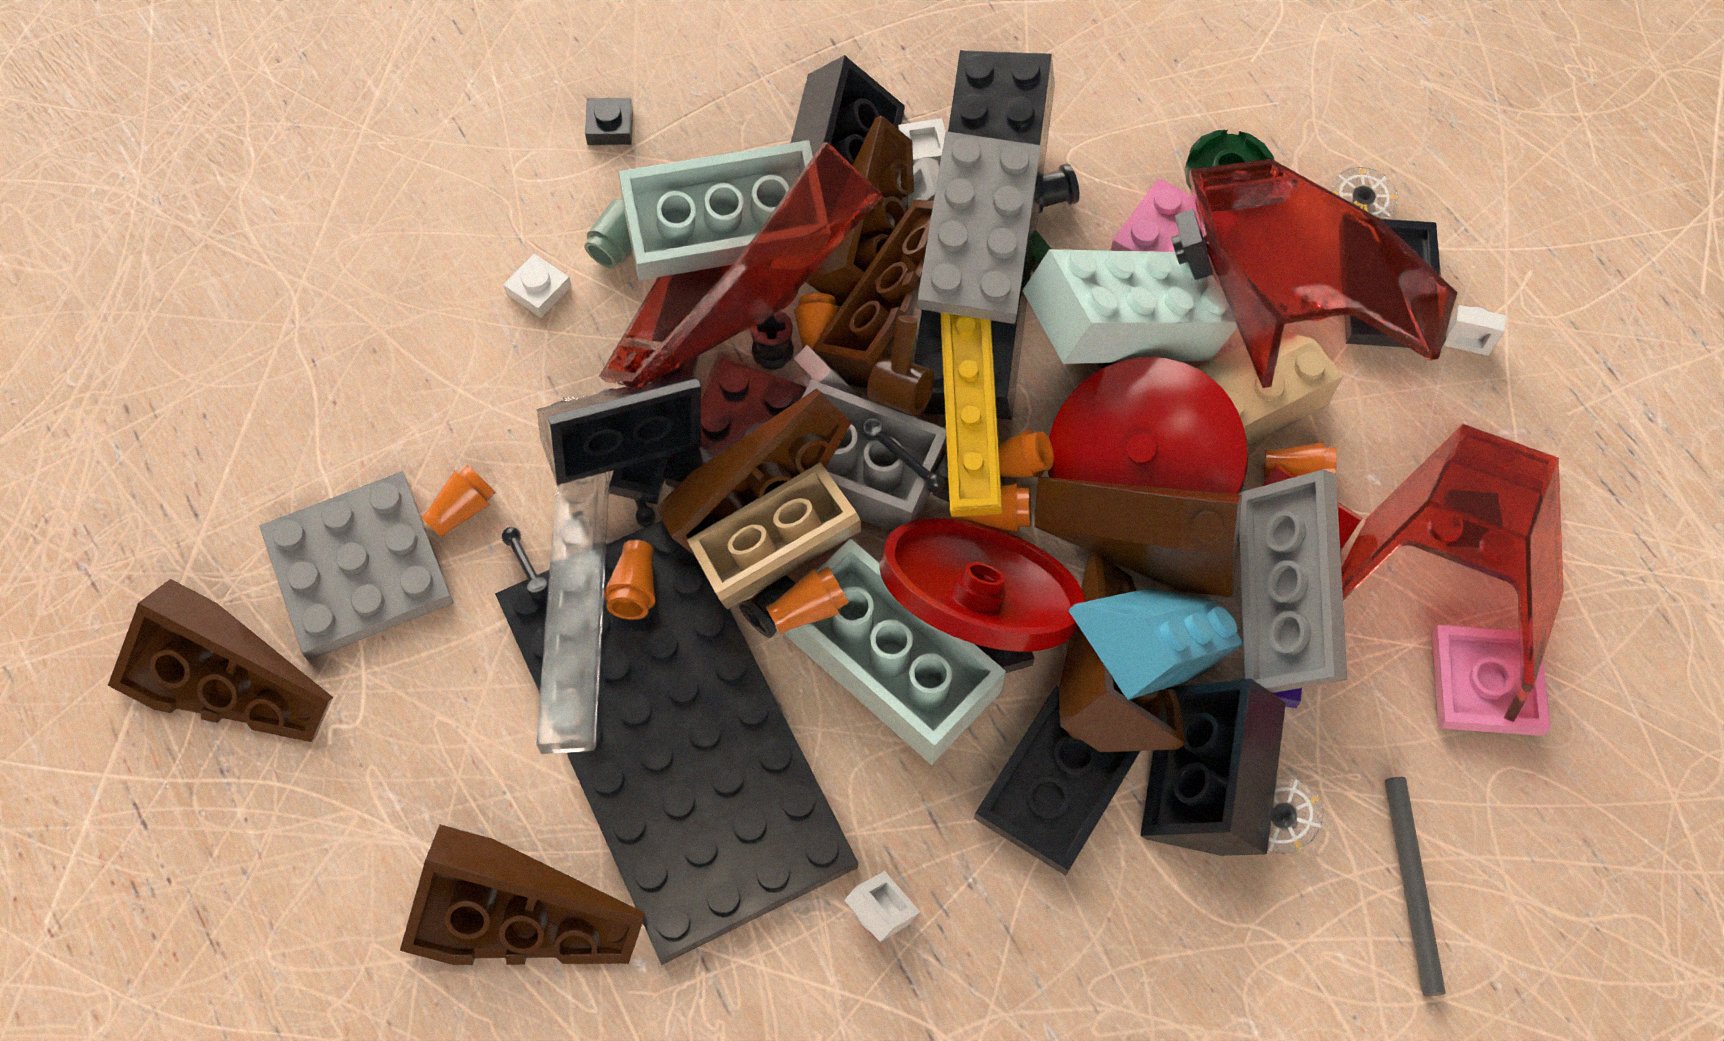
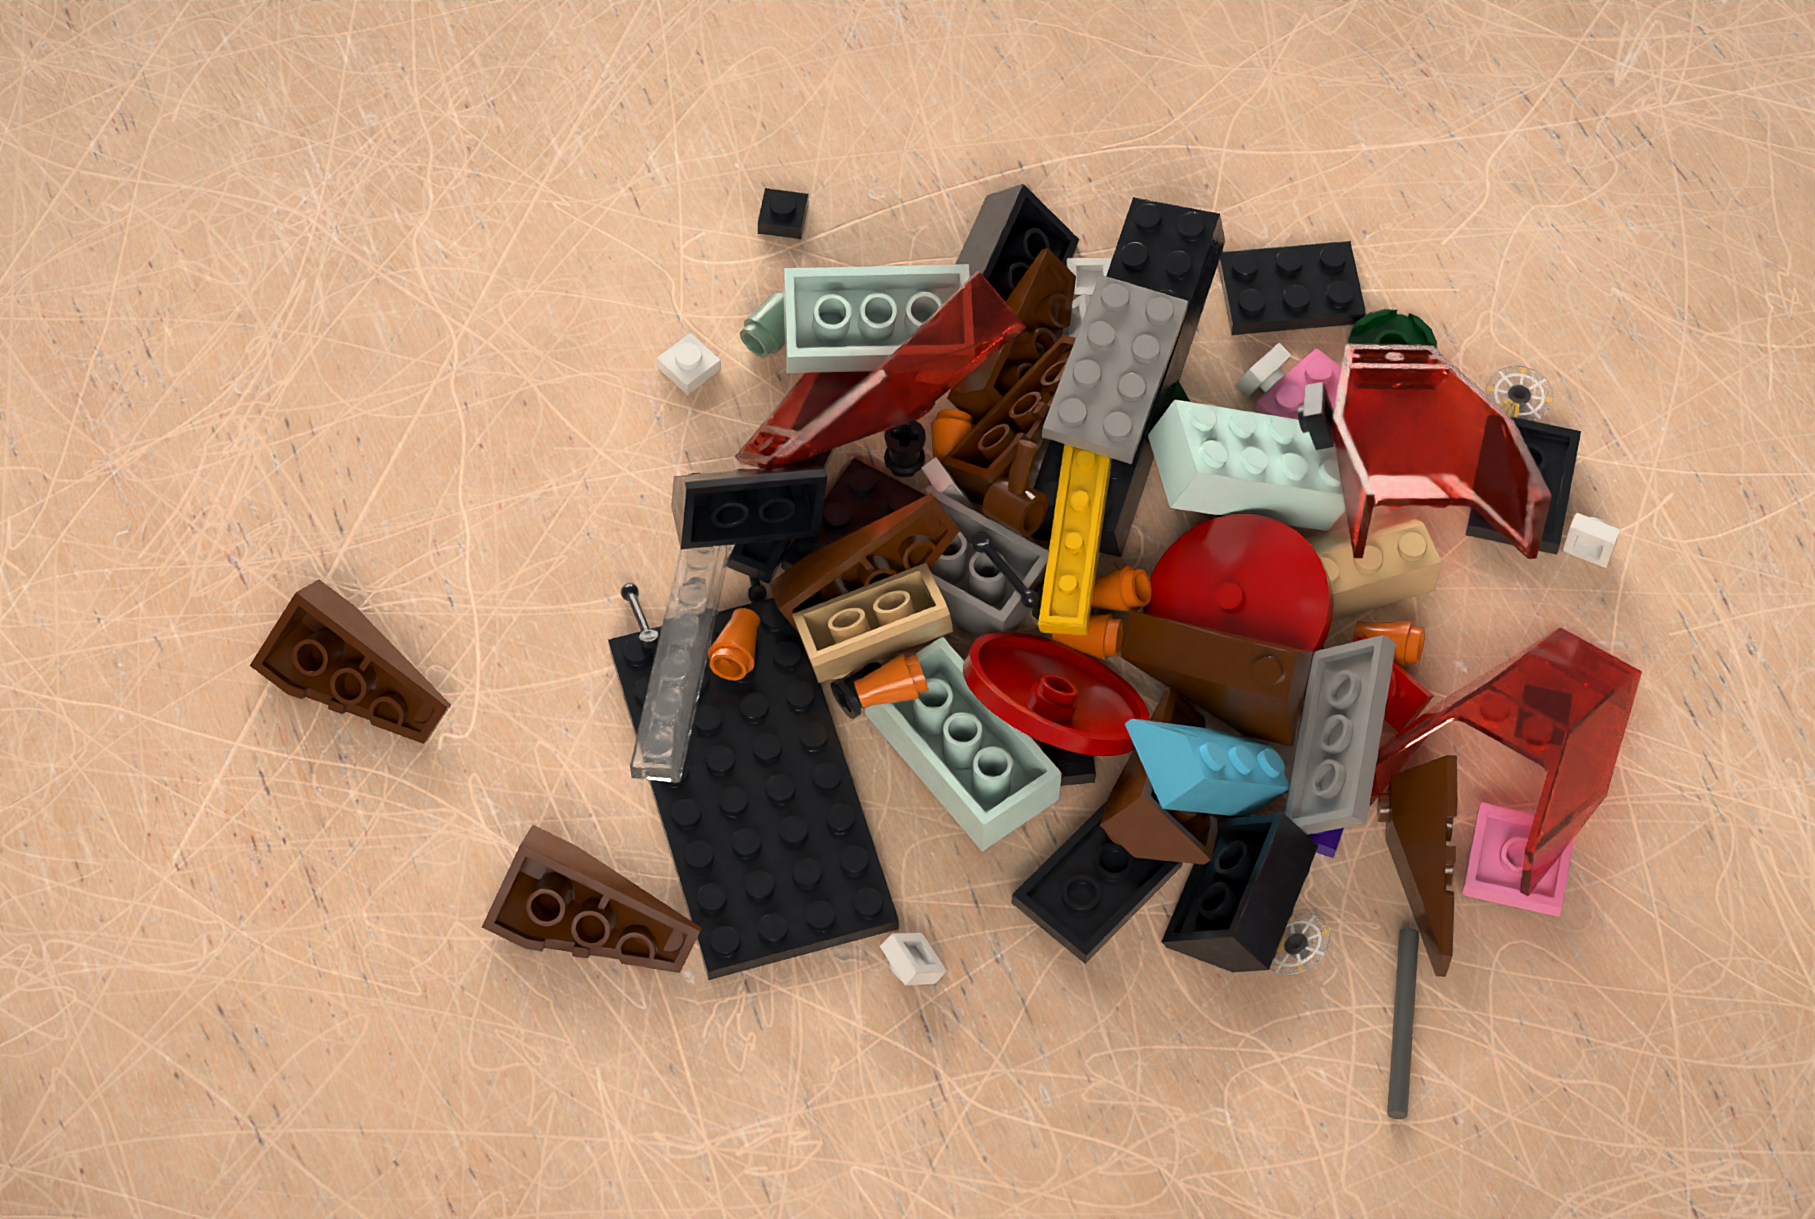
camera: 10 degrees right, 5 degrees down
(355, 565) = (483, 595): light grey plate -> none
(458, 501) = (587, 551): orange cone -> none
(1059, 187) = (1211, 343): black bush -> none
(1115, 209) = (1264, 372): none -> white plate
(1121, 123) = (1291, 288): none -> black plate
(1393, 686) = (1418, 824): none -> reddish brown wedge

